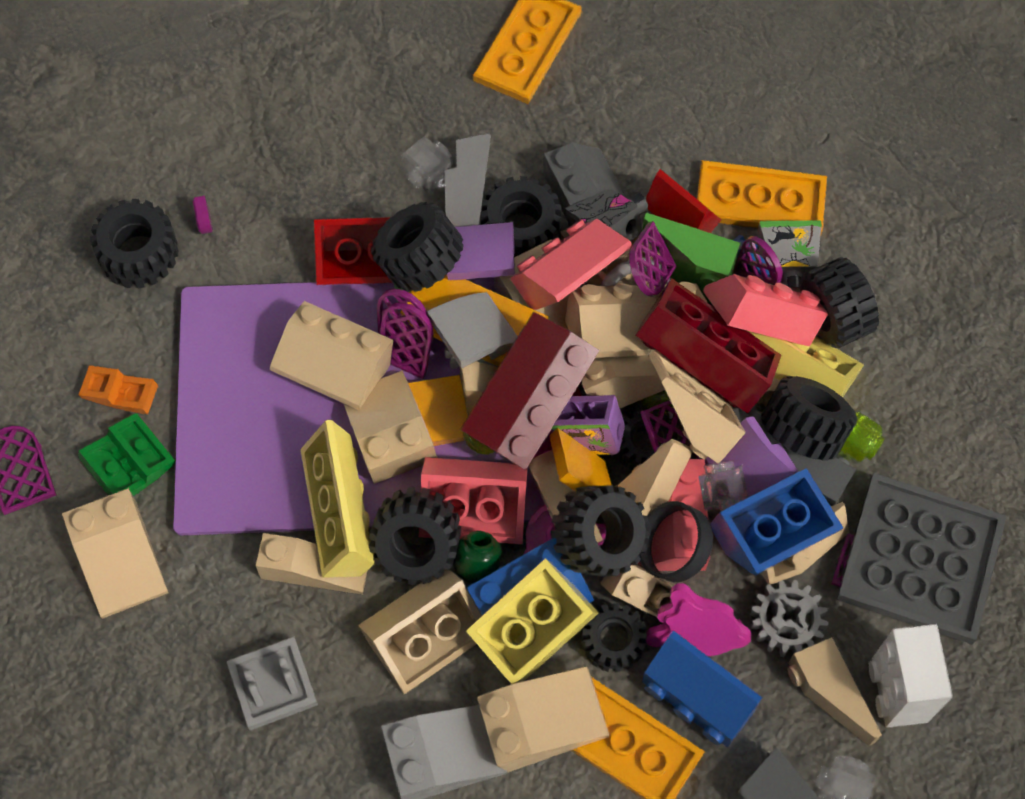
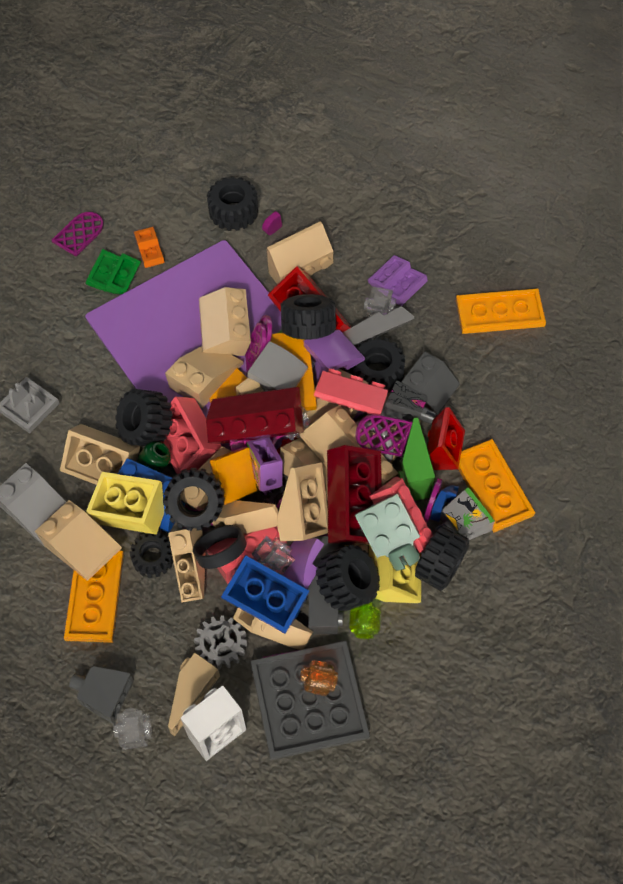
camera: 60 degrees right, 5 degrees down
(115, 553) = (57, 296): tan slope -> none
(290, 211) = (306, 249): none -> tan slope
(298, 563) = (102, 382): tan slope -> none
(337, 502) = (141, 370): light yellow slope -> none
(399, 123) = (399, 277): none -> medium lavender slope
(700, 621) = (181, 591): dark pink tile -> none
(700, 690) = (142, 615): blue slope -> none
(790, 330) = (390, 531): none -> plate
(914, 525) = (319, 677): none -> clear orange head

